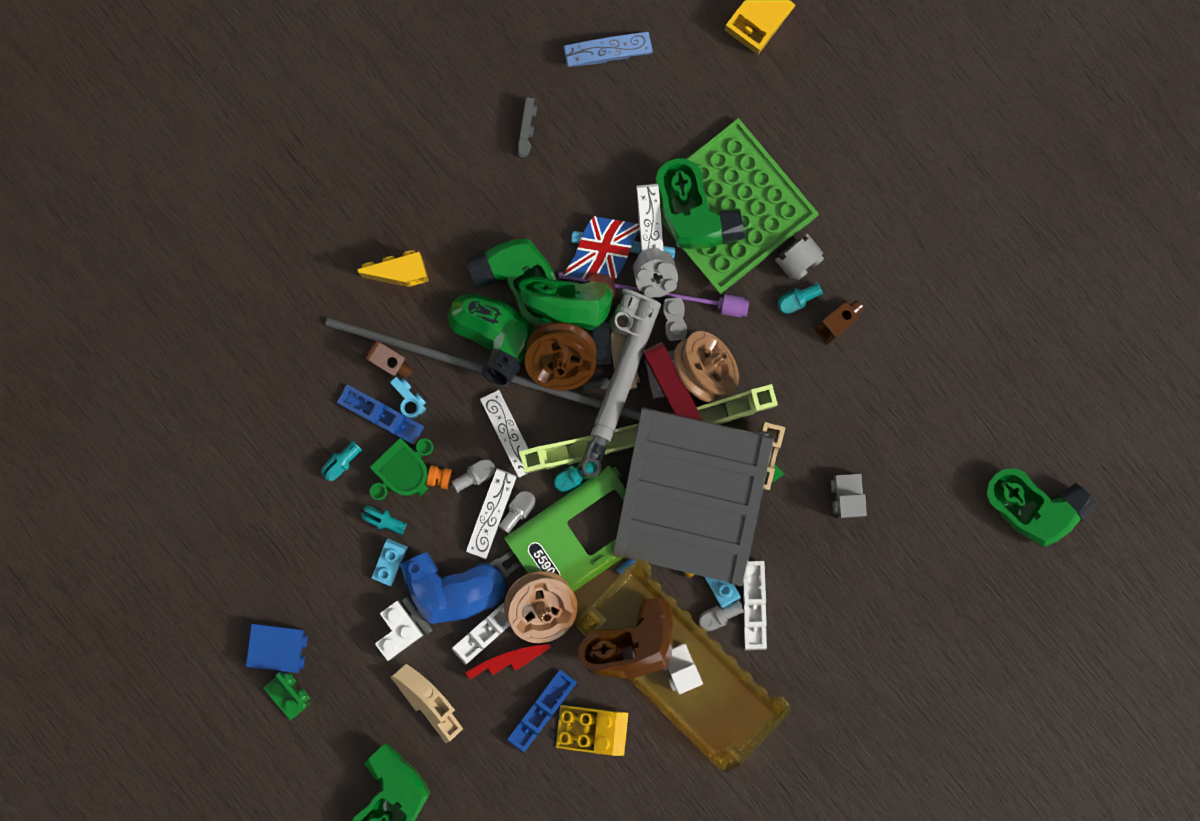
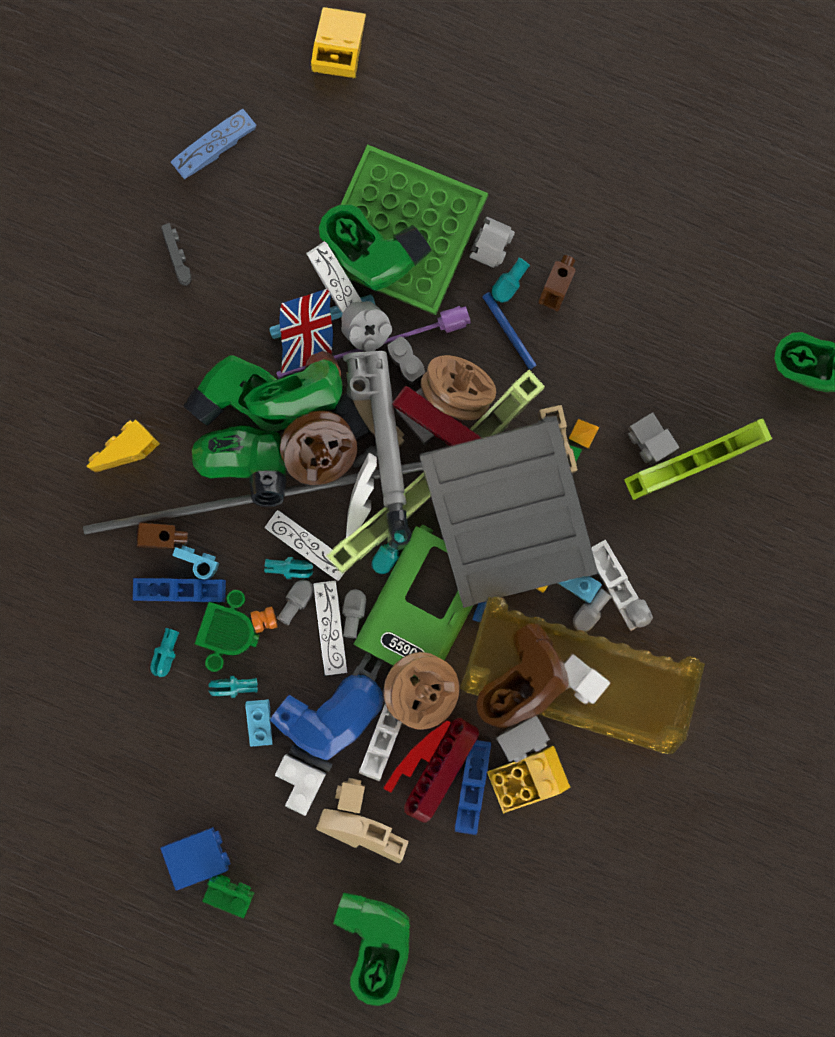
camera: 25 degrees left, 0 degrees up
(434, 664) = (350, 795): none -> tan brick
(483, 444) = (289, 567): none -> teal arm
(522, 683) = (441, 770): none -> dark red beam
(570, 422) = (359, 504): none -> white slope
(603, 692) = (522, 738): none -> light grey brick
(759, 638) = (639, 613): none -> light grey piece
(776, 342) = (509, 331): none -> blue bar
(793, 460) = (583, 433): none -> light orange slope
(877, 534) = (698, 459): none -> lime arch

